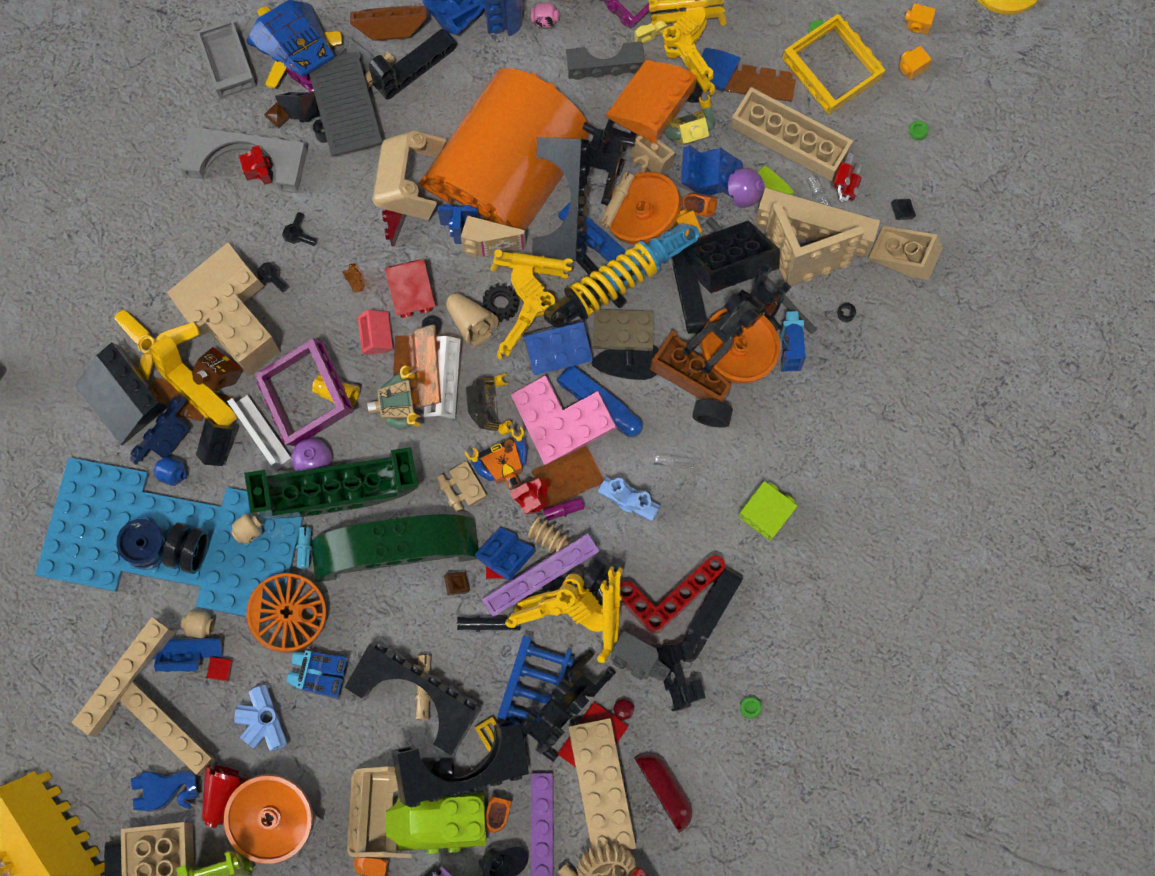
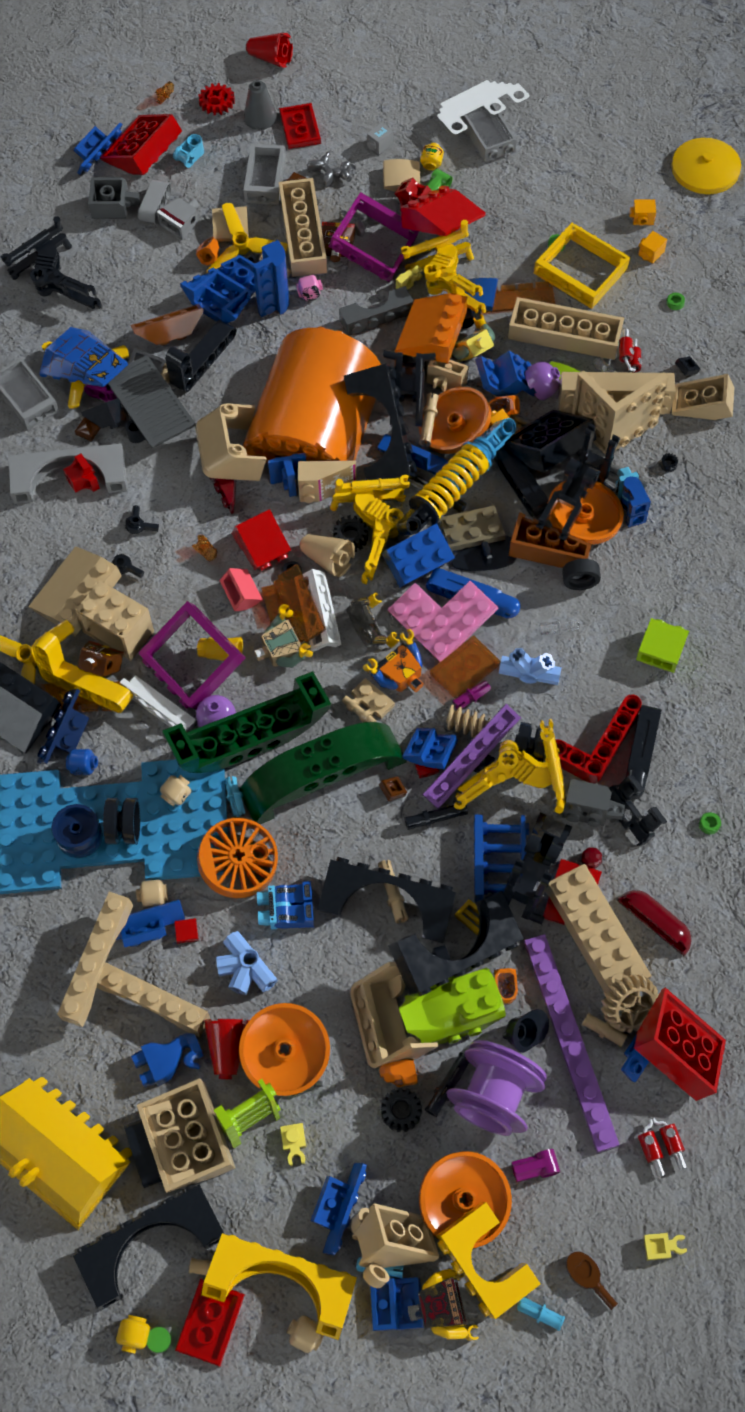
camera: 15 degrees left, 10 degrees down
(214, 443) = (117, 724): black panel -> none
(532, 495) = (439, 689): red brick -> none

